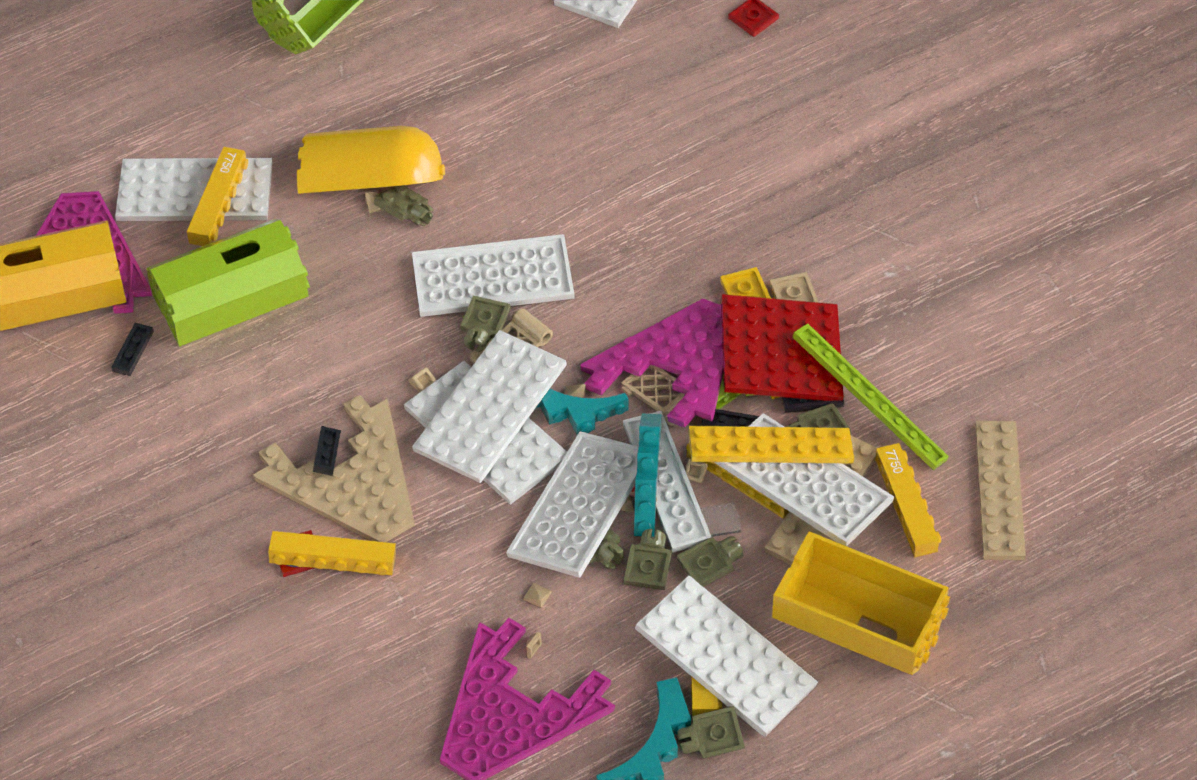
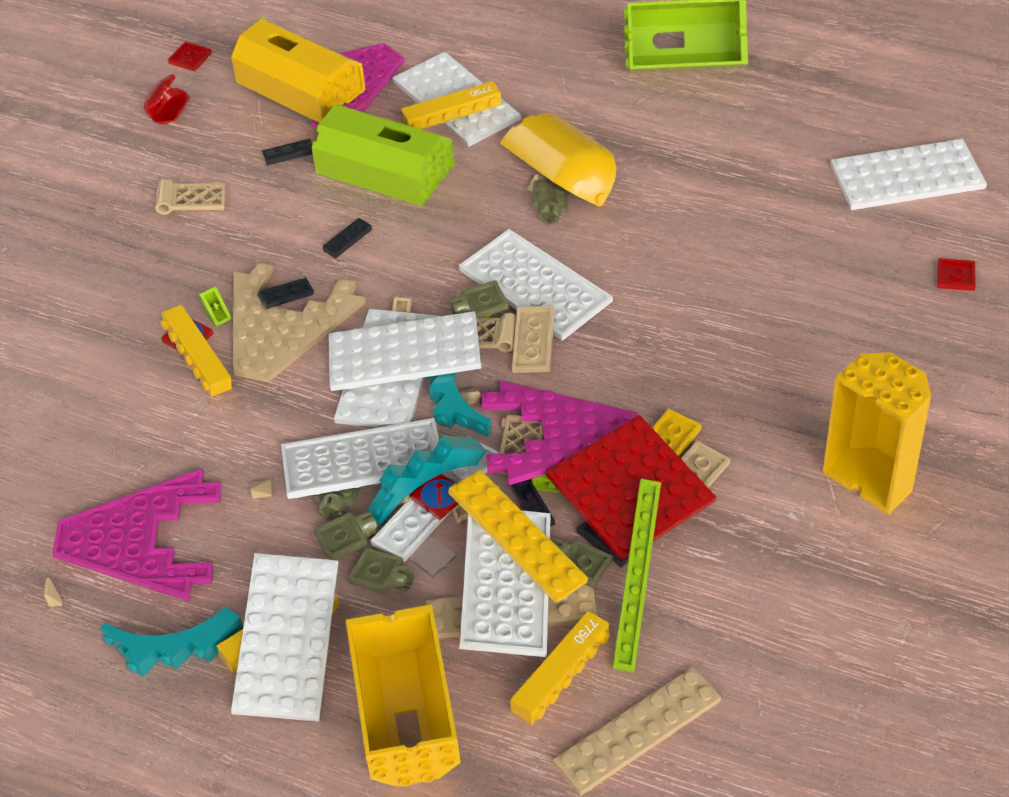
camera: 55 degrees right, 5 degrees down
(96, 471) = (168, 191): none -> tan piece
(289, 513) = (214, 307): none -> lime slope
(294, 370) = (347, 238): none -> black plate
(533, 644) = (208, 512): tan slope -> none
(561, 313) = (533, 339): none -> tan plate
(675, 475) = (434, 496): none -> tile
(712, 733) = (206, 675): olive plate -> none
(904, 158) = (877, 428): none -> yellow panel

